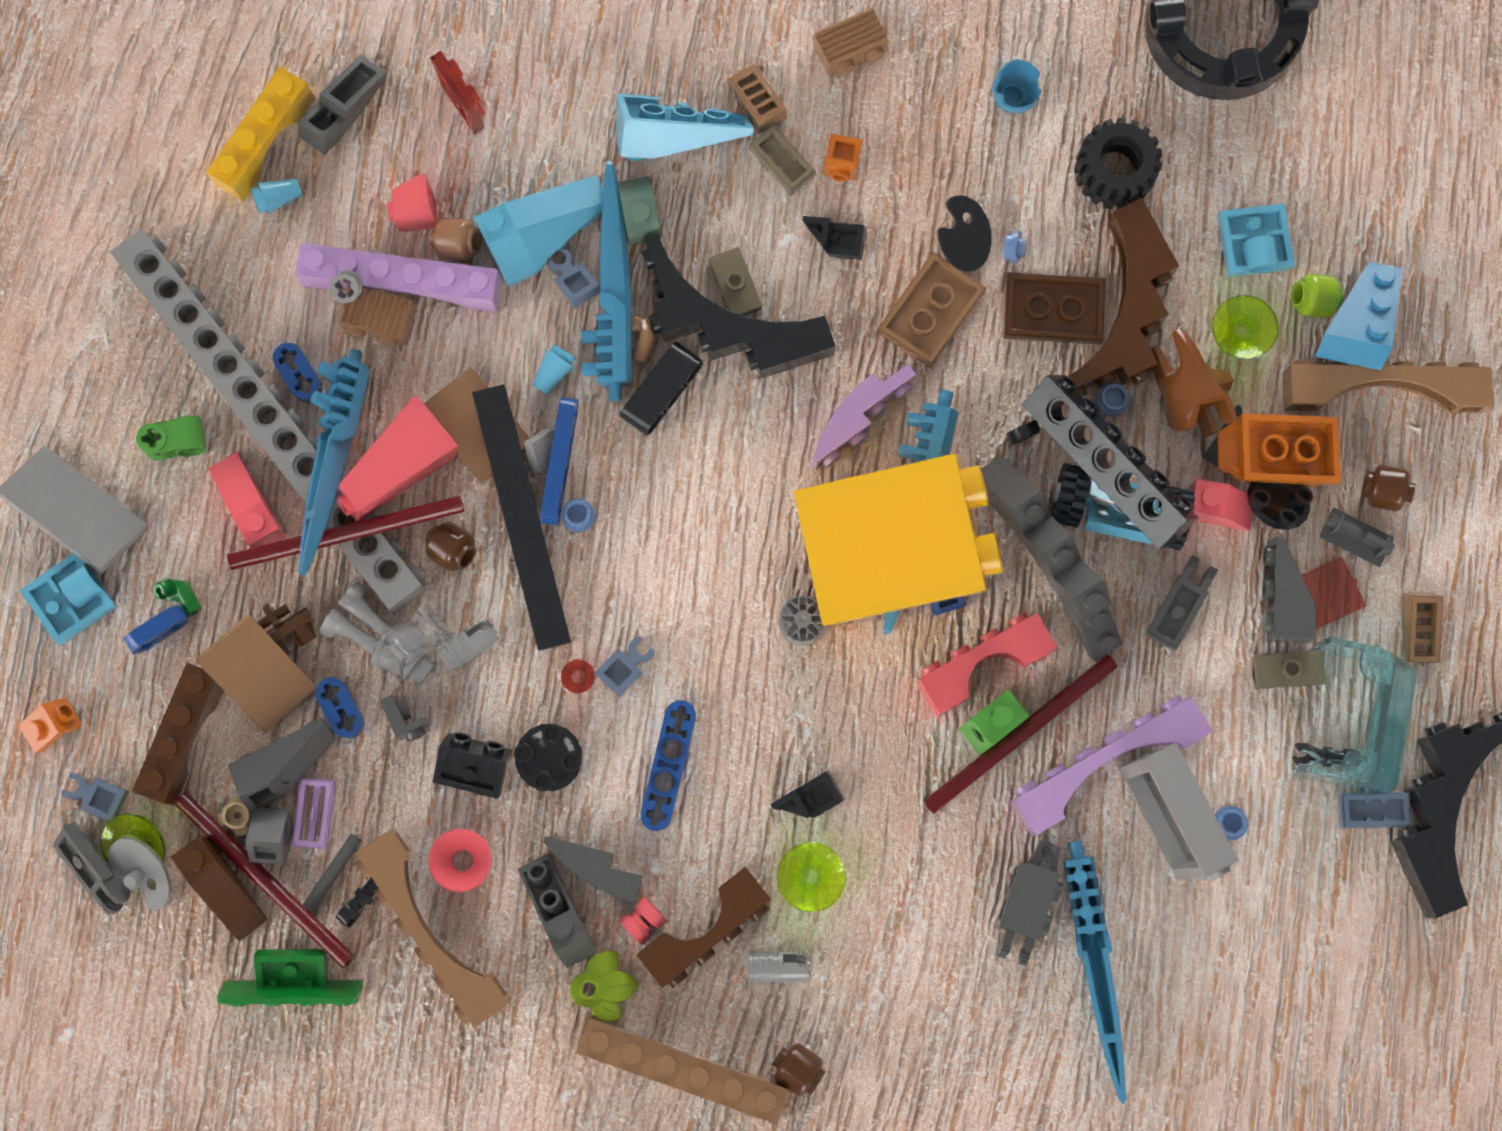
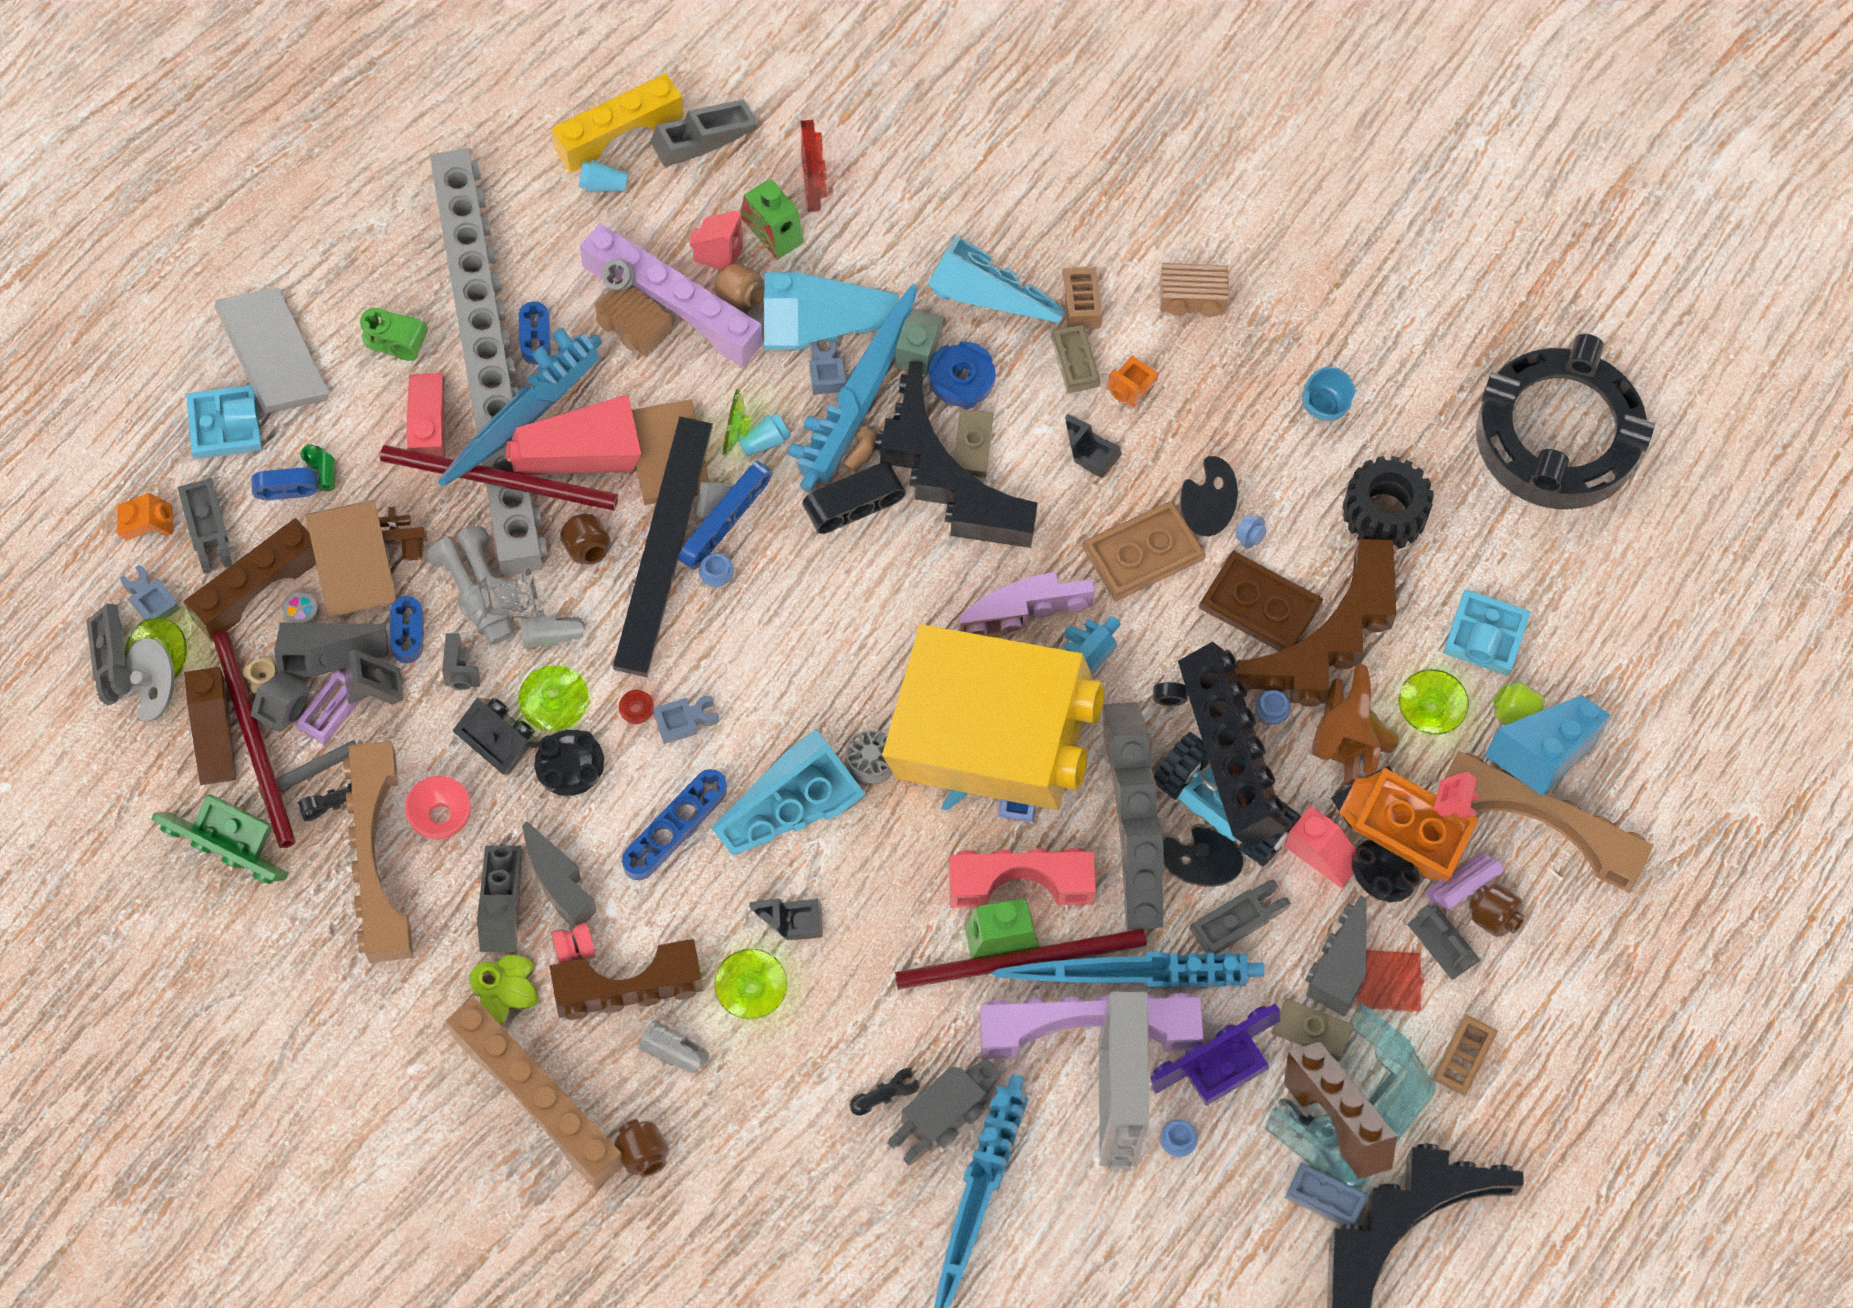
camera: 25 degrees right, 15 degrees down
(105, 700) = (205, 521): none -> dark grey hinge
(236, 738) = (300, 608): none -> light grey tile
(338, 773) = (371, 677): none -> dark grey slope
(446, 157) = (767, 214): none -> bright green torso
(516, 712) = (558, 711): none -> clear neon green dish
(526, 372) = (737, 424): none -> clear neon green dish
(705, 238) = (962, 391): none -> blue plate
(755, 681) = (793, 792): none -> medium azure wedge
(958, 929) = (863, 1103): none -> black piece
(1129, 560) = (1212, 857): none -> black piece
(1139, 690) = (1155, 969): none -> dark azure piece
(1239, 737) = (1222, 1062): none -> dark purple bracket
(1314, 408) = (1456, 795): none -> coral tile
(1349, 460) = (1465, 880): none -> lavender tile
(1393, 755) = (1362, 1133): none -> reddish brown arch

